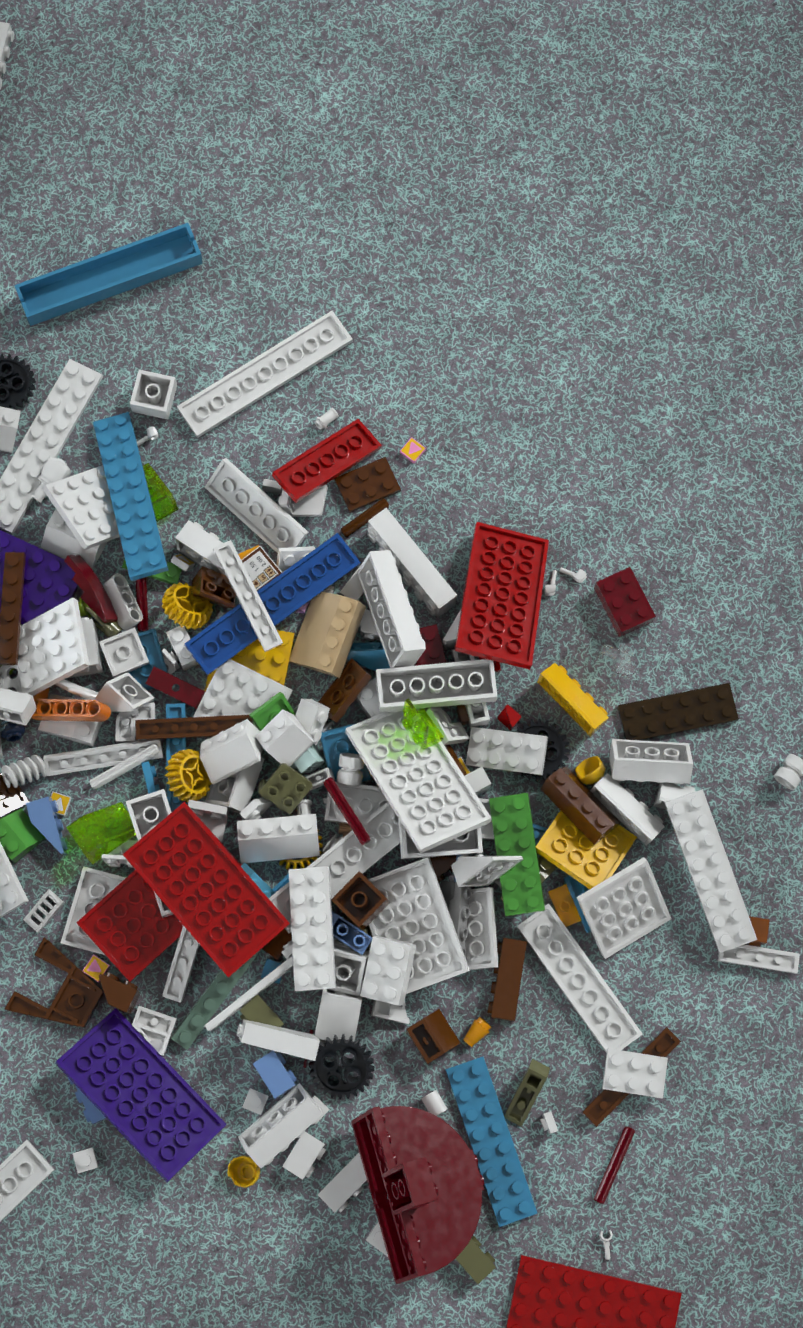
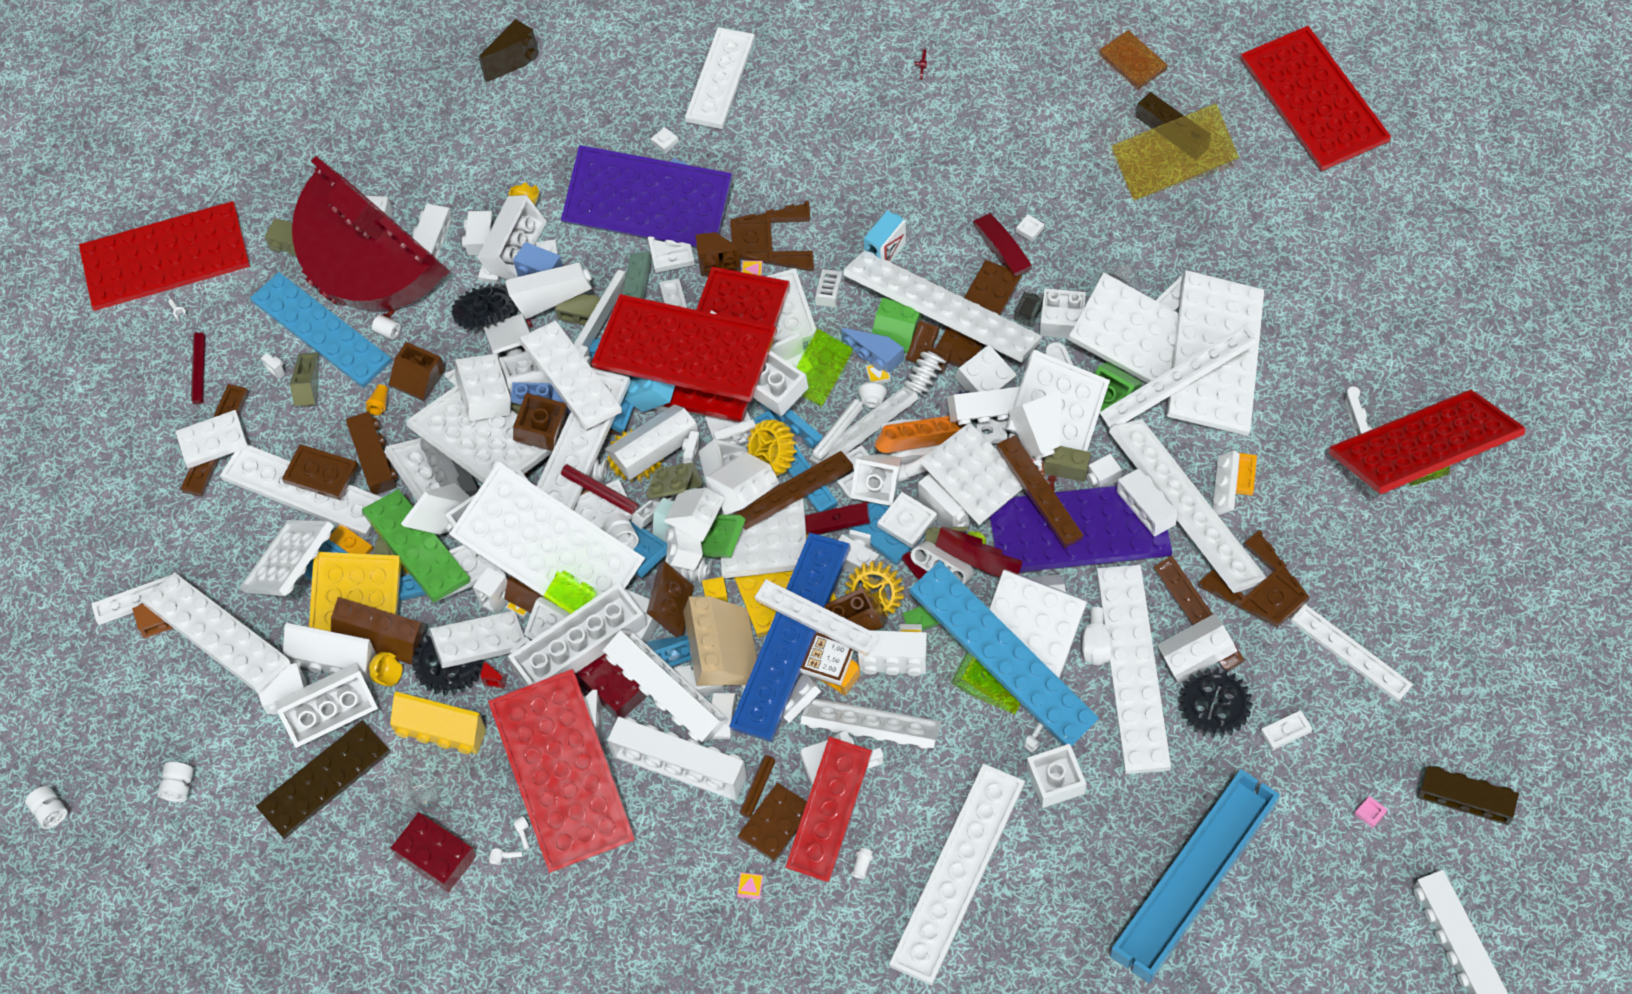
camera: 160 degrees right, 15 degrees down
(77, 781) = (872, 393): none -> white cone
(304, 808) = (642, 482): white bush -> none
(305, 682) = (715, 588): none -> yellow brick
(559, 980) = (320, 472): none -> reddish brown plate

